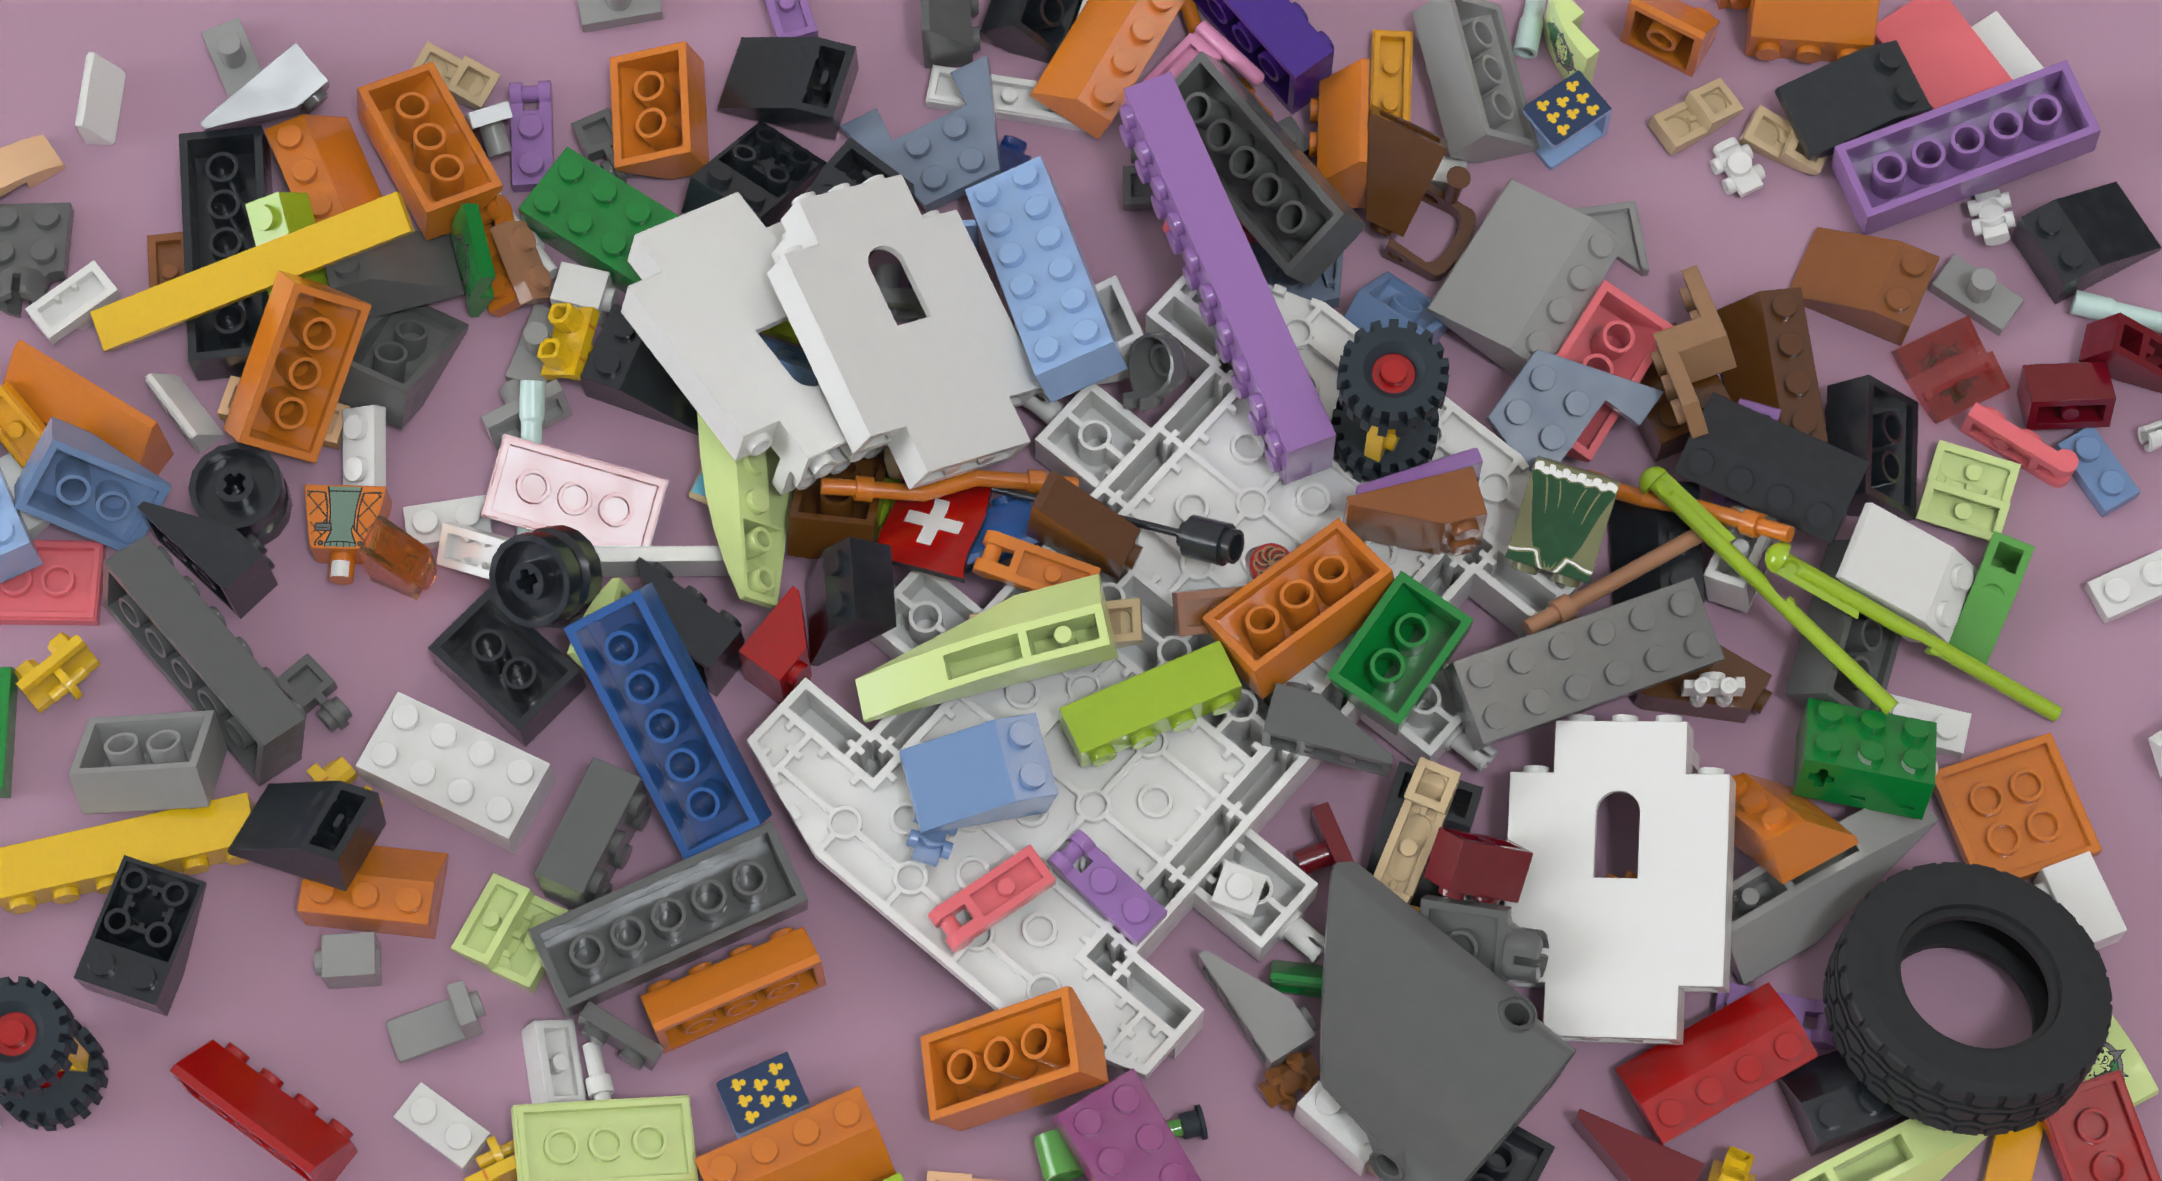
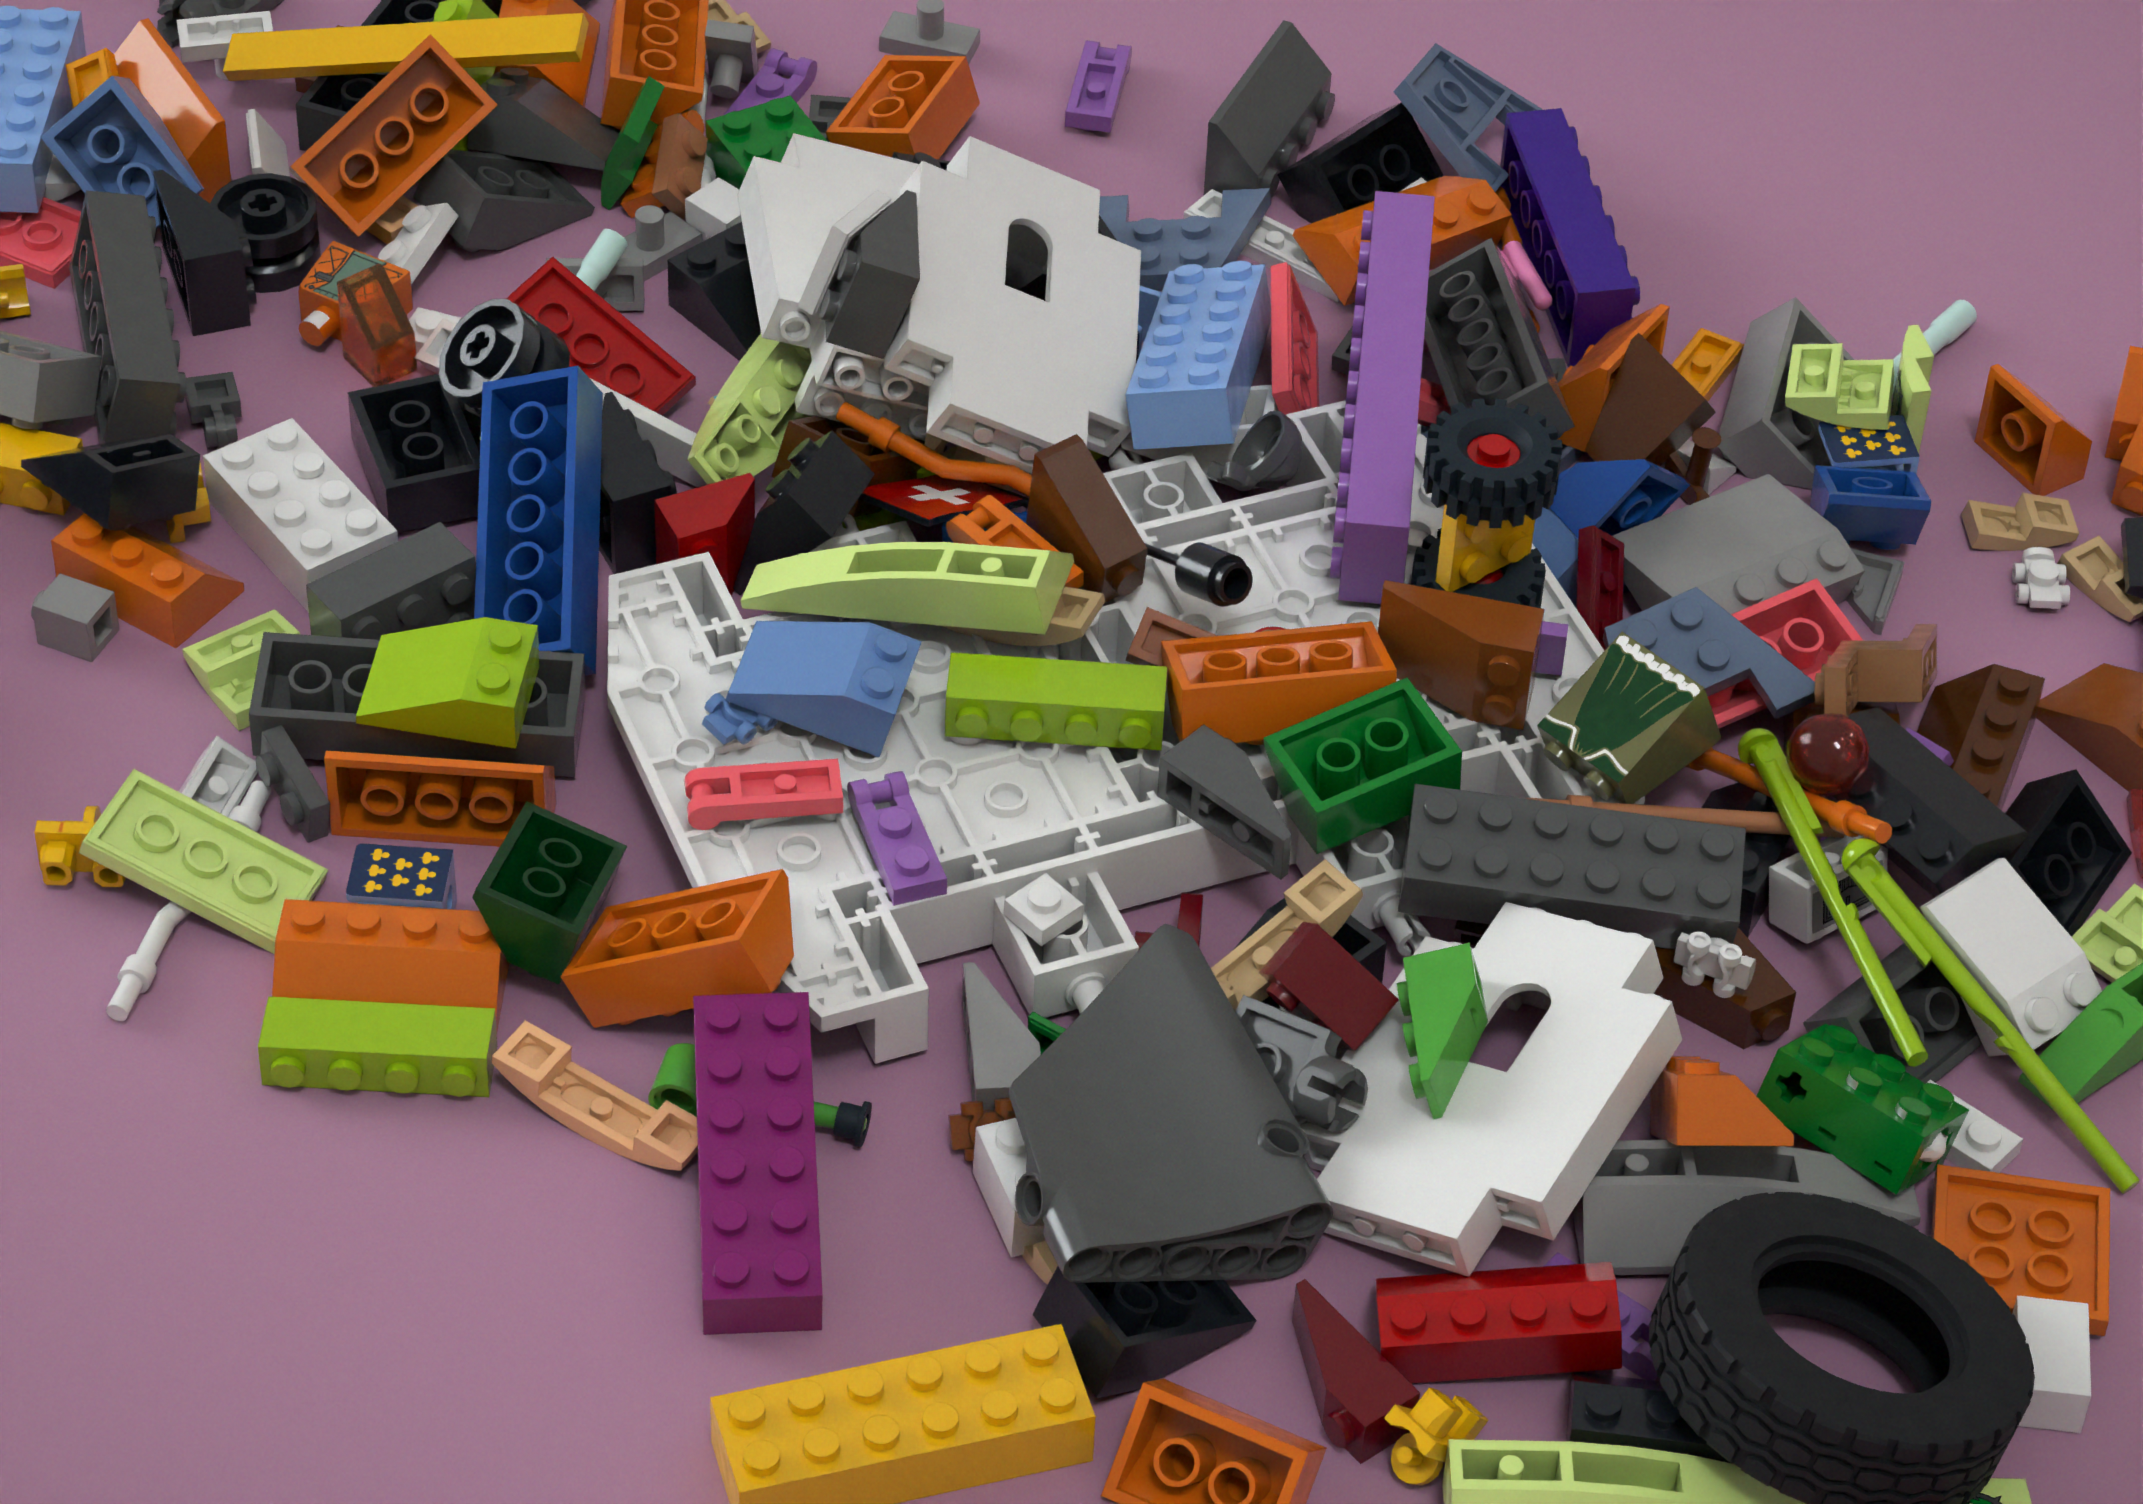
camera: 25 degrees right, 25 degrees down
(437, 1024) = (123, 709): light grey bracket -> none
(442, 1126) = (52, 784): white plate -> none
(570, 342) = (691, 228): yellow hips -> none
(697, 907) = (454, 681): none -> lime slope
(776, 374) = (841, 237): none -> white tile
(791, 82) = (1069, 138): black slope -> none
(814, 384) = (875, 281): none -> dark grey slope
(878, 1050) = (546, 889): none -> dark green slope
(1106, 234) = (1292, 345): none -> coral tile
(1416, 271) = (1614, 494): none -> blue slope
(1462, 384) = (1600, 579): none -> dark red tile
(1523, 67) = (1839, 389): none -> yellowish green slope
(1574, 851) = (1447, 1020): none -> bright green slope
(1593, 167) = (1871, 504): none -> blue slope
(1713, 474) = (1827, 754): none -> clear red hair

